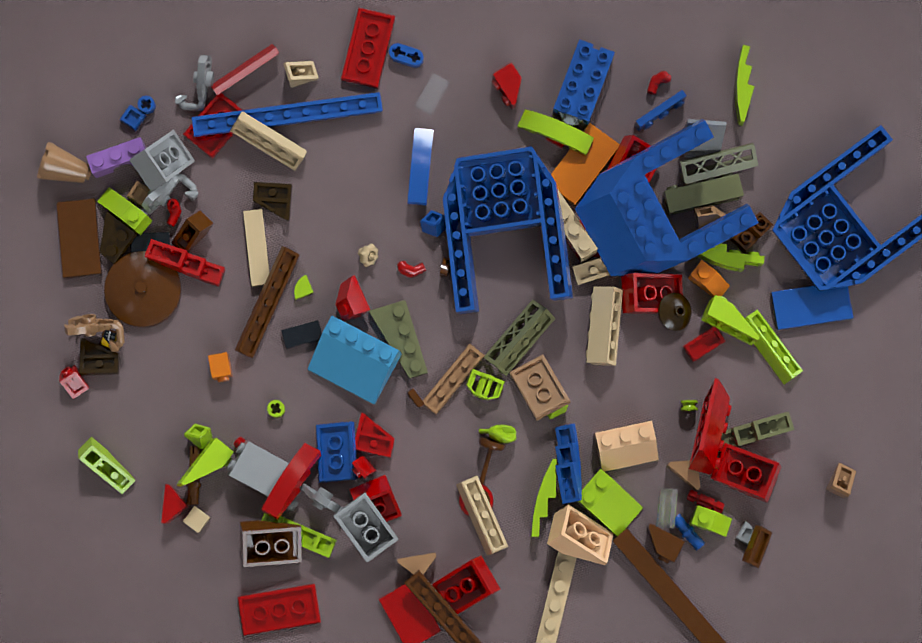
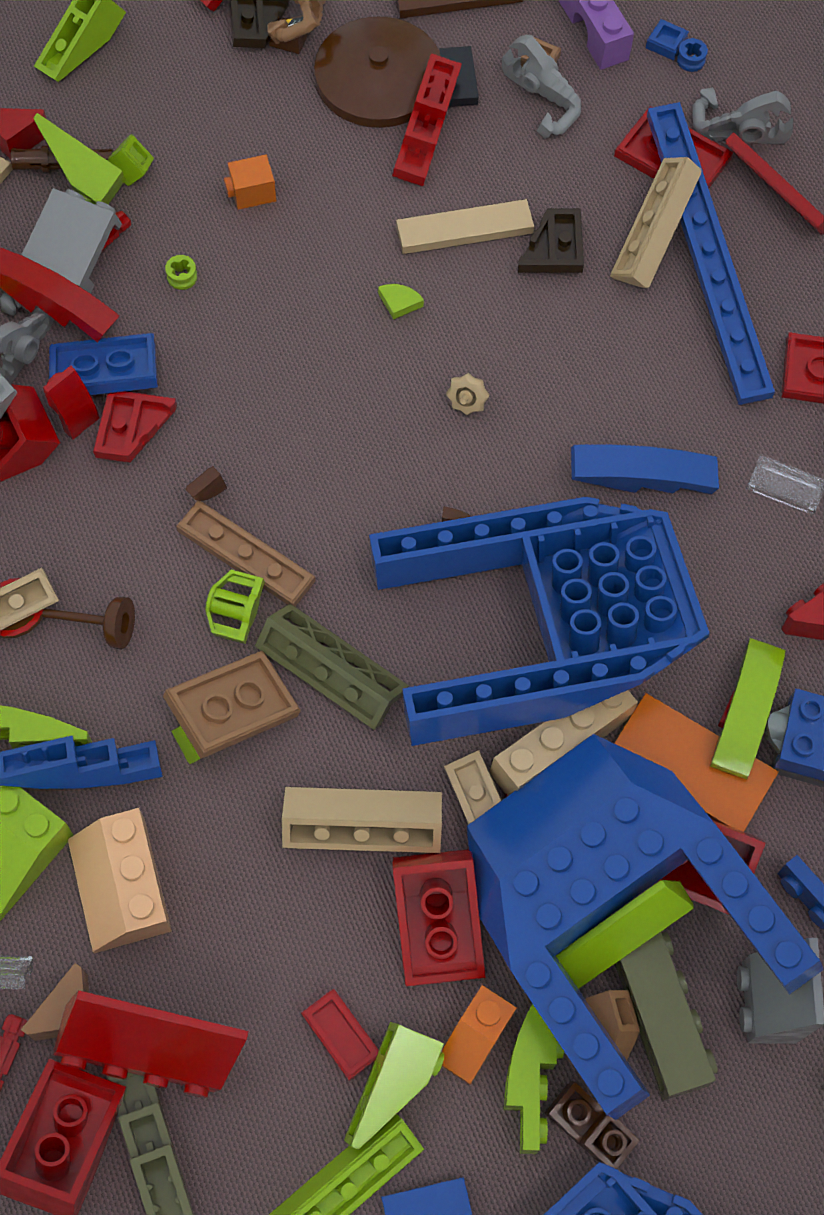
camera: 85 degrees right, 15 degrees down
(115, 238) = (461, 24): dark brown wing -> none
(125, 210) = (499, 30): lime slope -> none
(162, 160) = (599, 63): light grey slope -> none
(174, 210) = (517, 103): red arm -> none
(192, 231) = (483, 127): reddish brown slope -> none
(267, 302) = (369, 244): reddish brown tile -> none
(300, 72) = (786, 263): tan slope -> none
(302, 334) = (315, 304): black tile -> none
(351, 300) = (377, 368): red slope -> none
(353, 360) = (274, 382): dark azure slope -> none
(399, 332) = (321, 461): olive wing -> none
(410, 271) = (445, 465): red arm -> none
(433, 223) = (538, 492): blue slope -> none
(500, 433) = (140, 641): lime piece -> none
(668, 311) = (409, 946): dark brown dish -> none
(671, 205) = (625, 931): none -> lime slope
(689, 405) = (206, 1005): lime bush -> none
(719, 167) = (735, 1077): olive fence -> none

